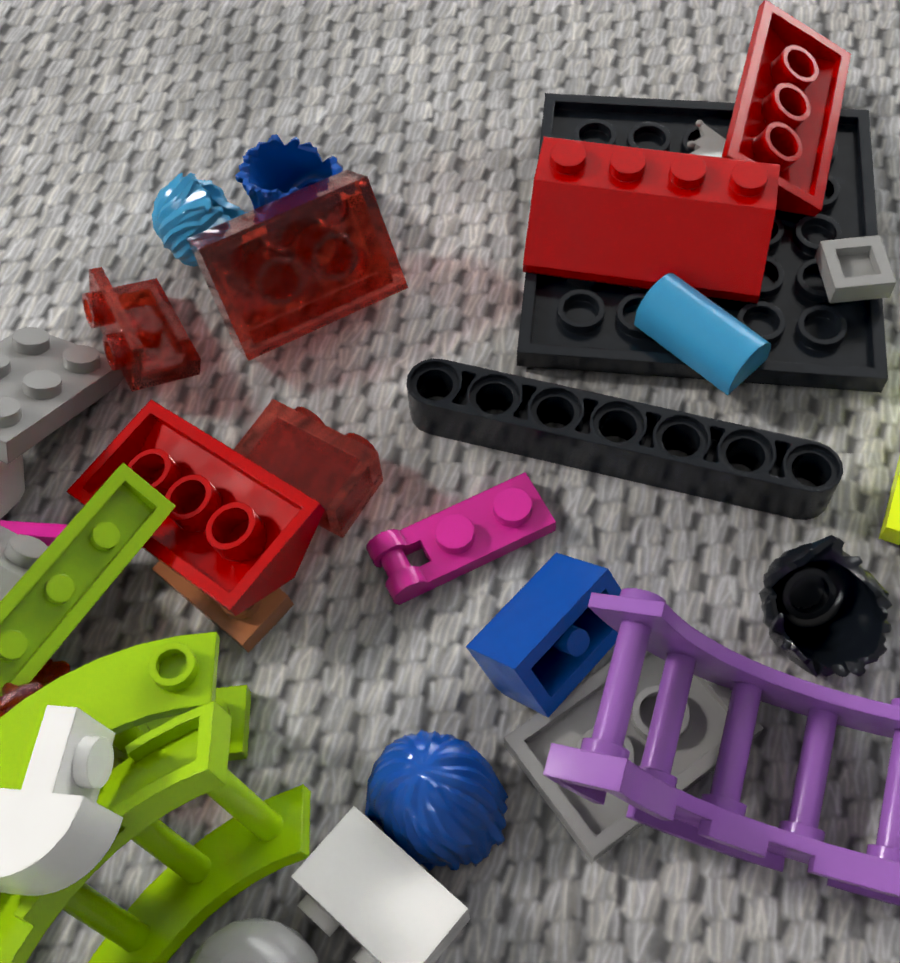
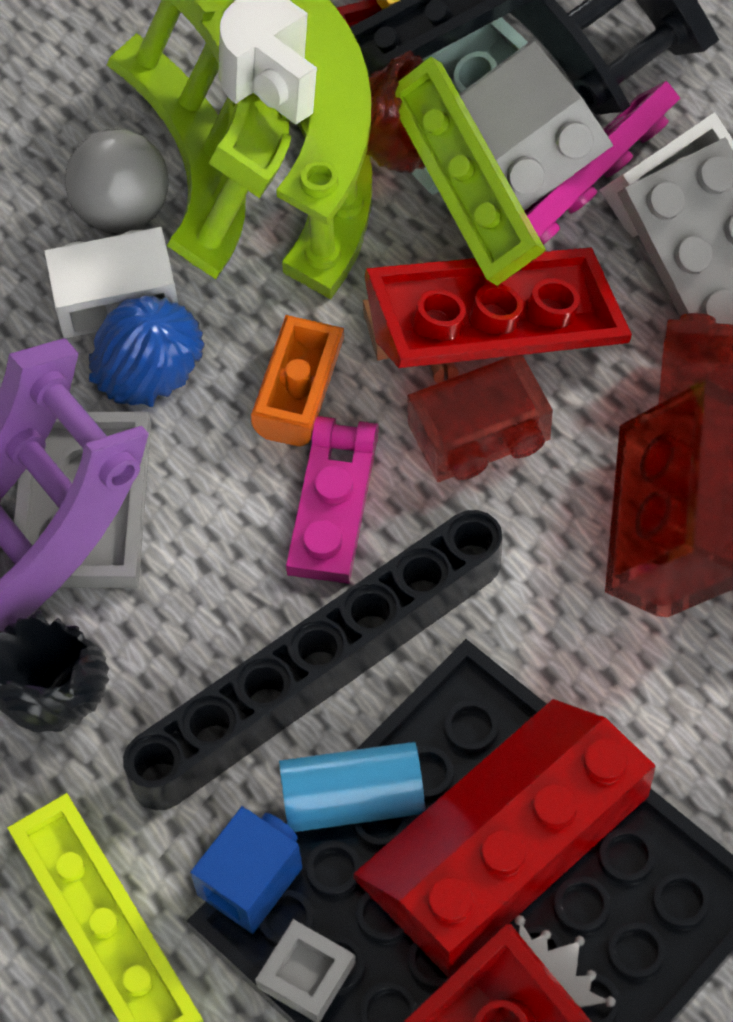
camera: 125 degrees right, 0 degrees up
(368, 634) = (296, 380): none -> orange brick
(547, 634) = (192, 486): blue brick -> none
(829, 341) = (248, 867): none -> blue brick

